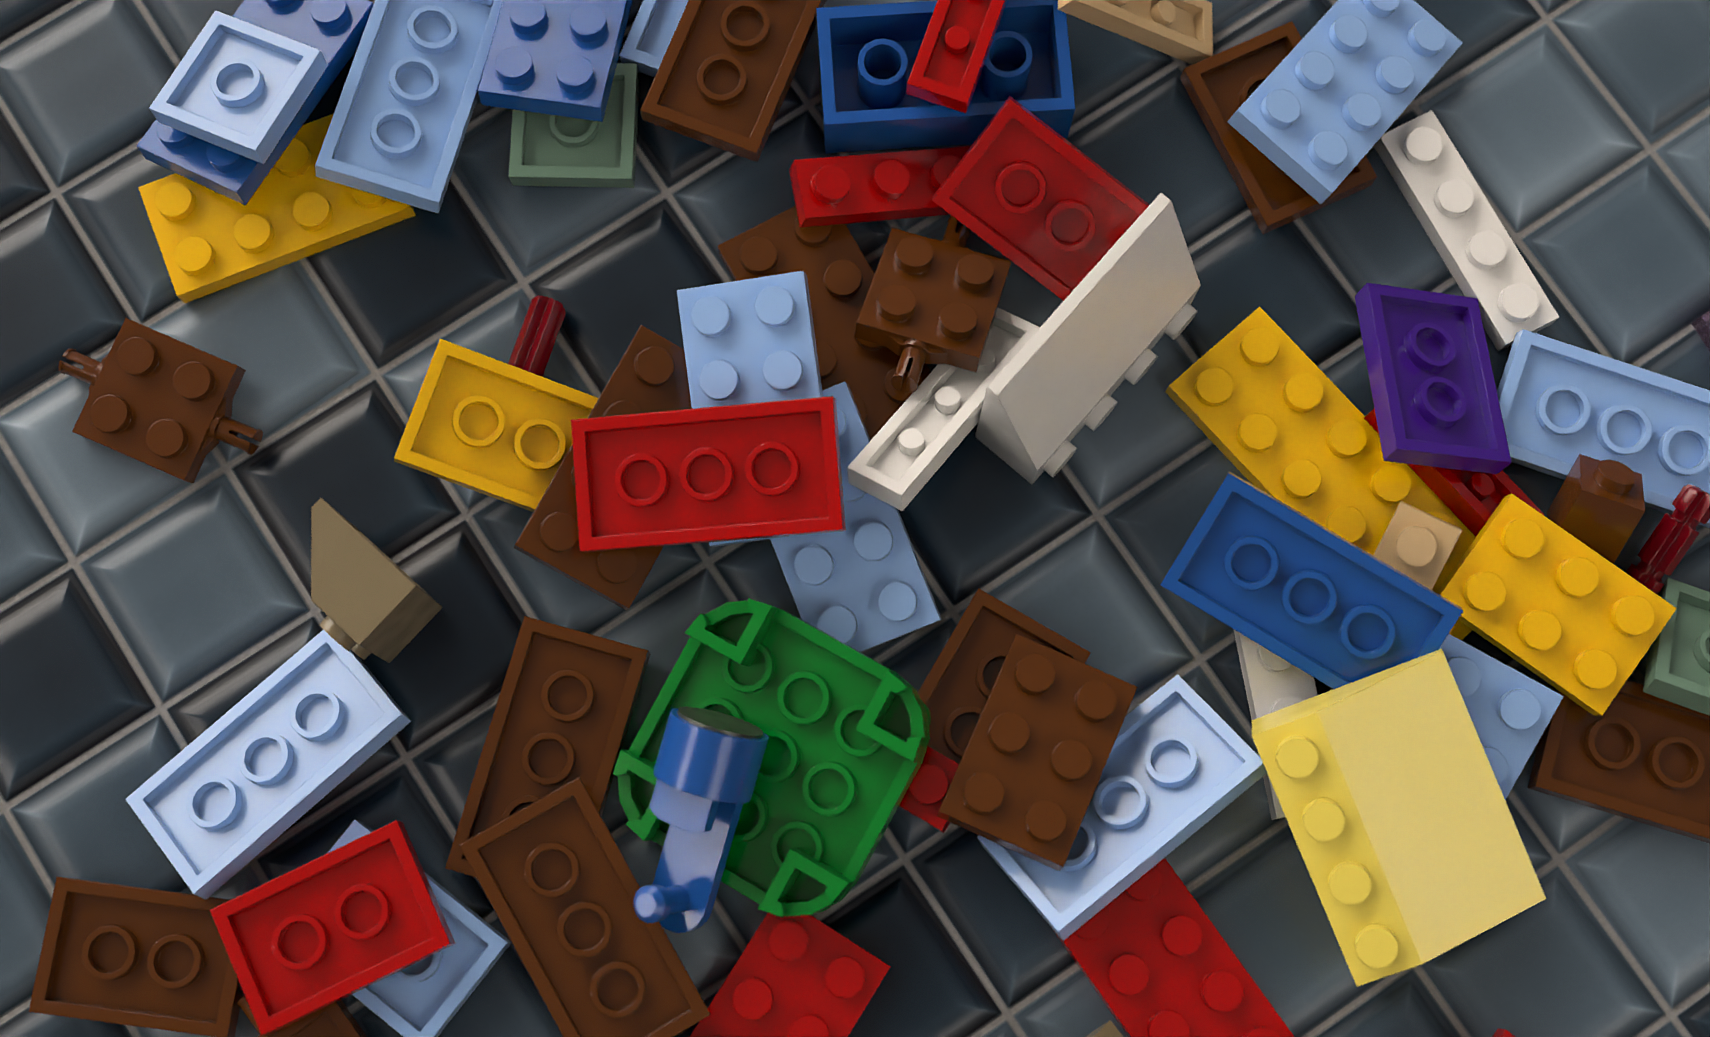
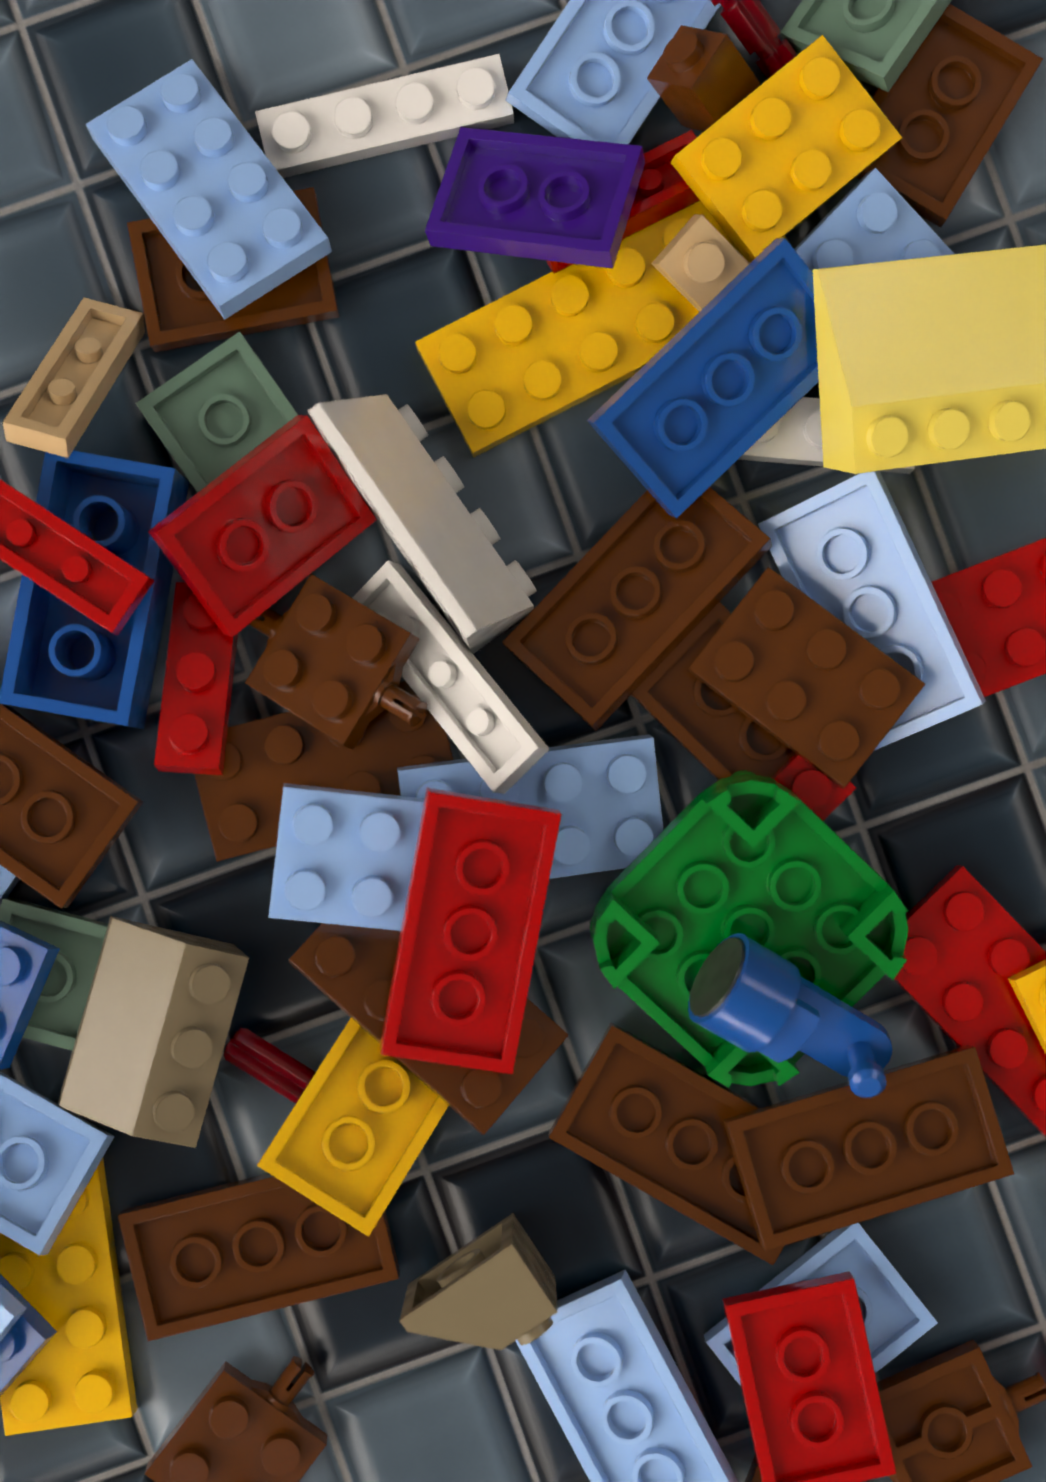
camera: 75 degrees left, 10 degrees up
(351, 362) = (244, 1254): none -> reddish brown plate
(544, 222) = (153, 1031): none -> dark tan slope
(1069, 572) = (634, 600): none -> reddish brown plate
(1143, 140) = (216, 410): none -> sand green plate

